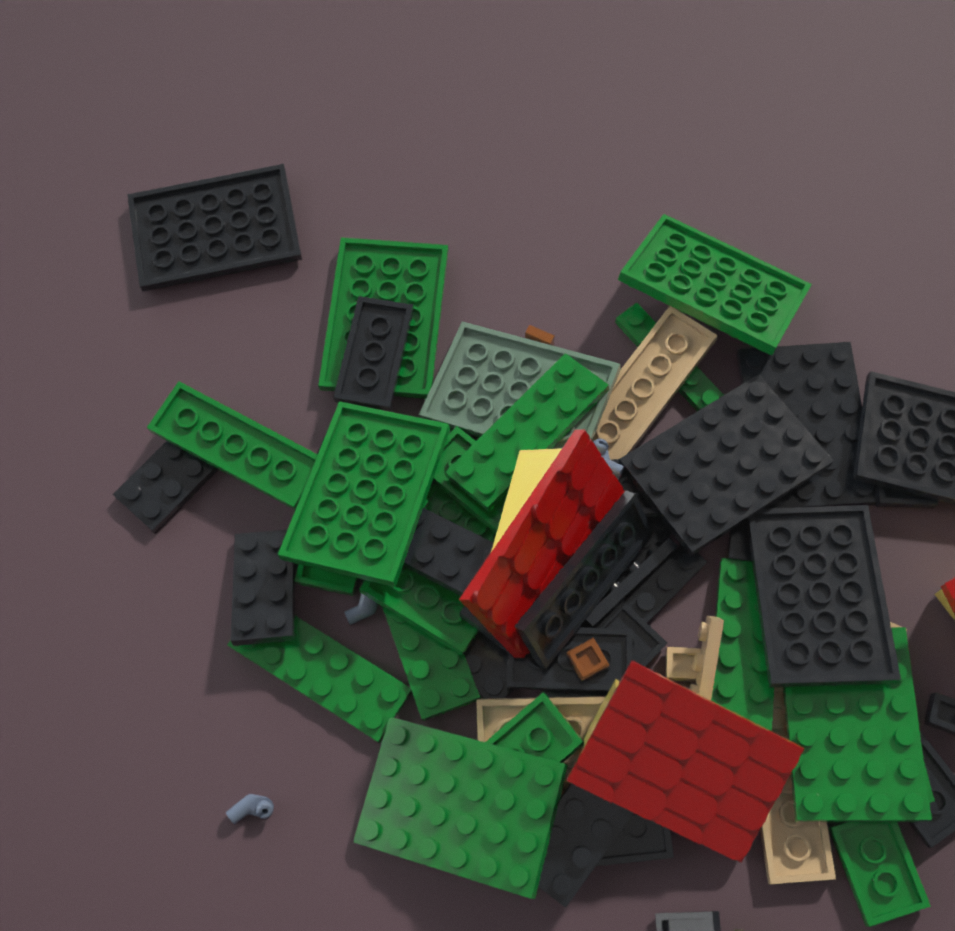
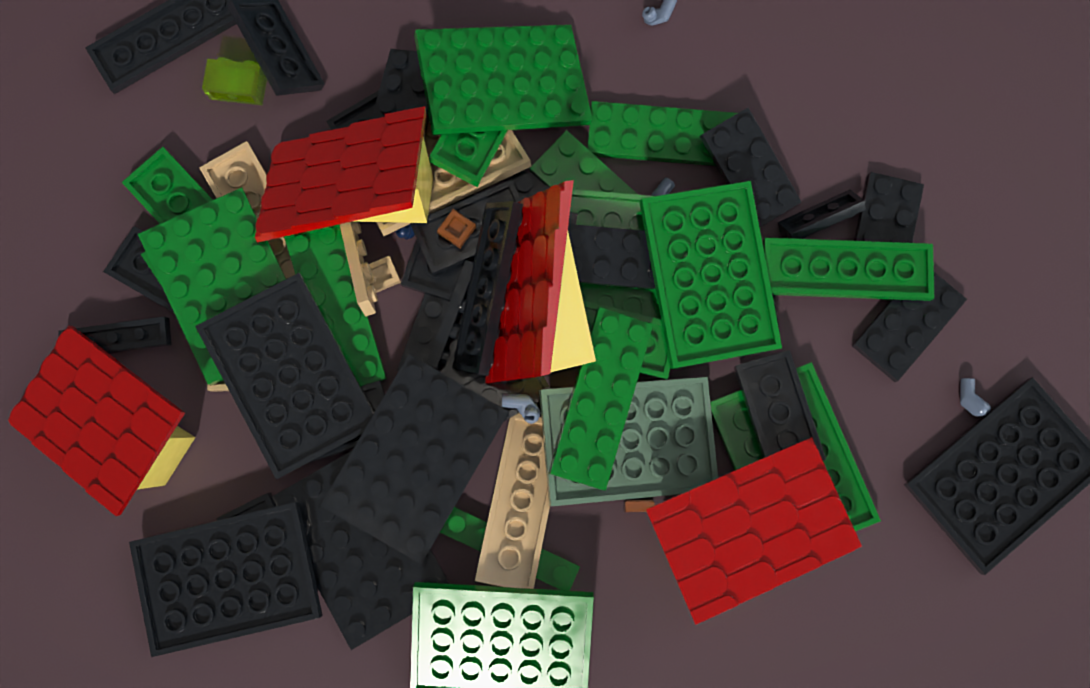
camera: 150 degrees right, 10 degrees up
(202, 296) = (970, 400): none -> sand blue arm
(223, 375) = (907, 329): none -> black plate
(225, 510) = (822, 215): none -> black plate
(455, 263) = (753, 529): none -> red piece

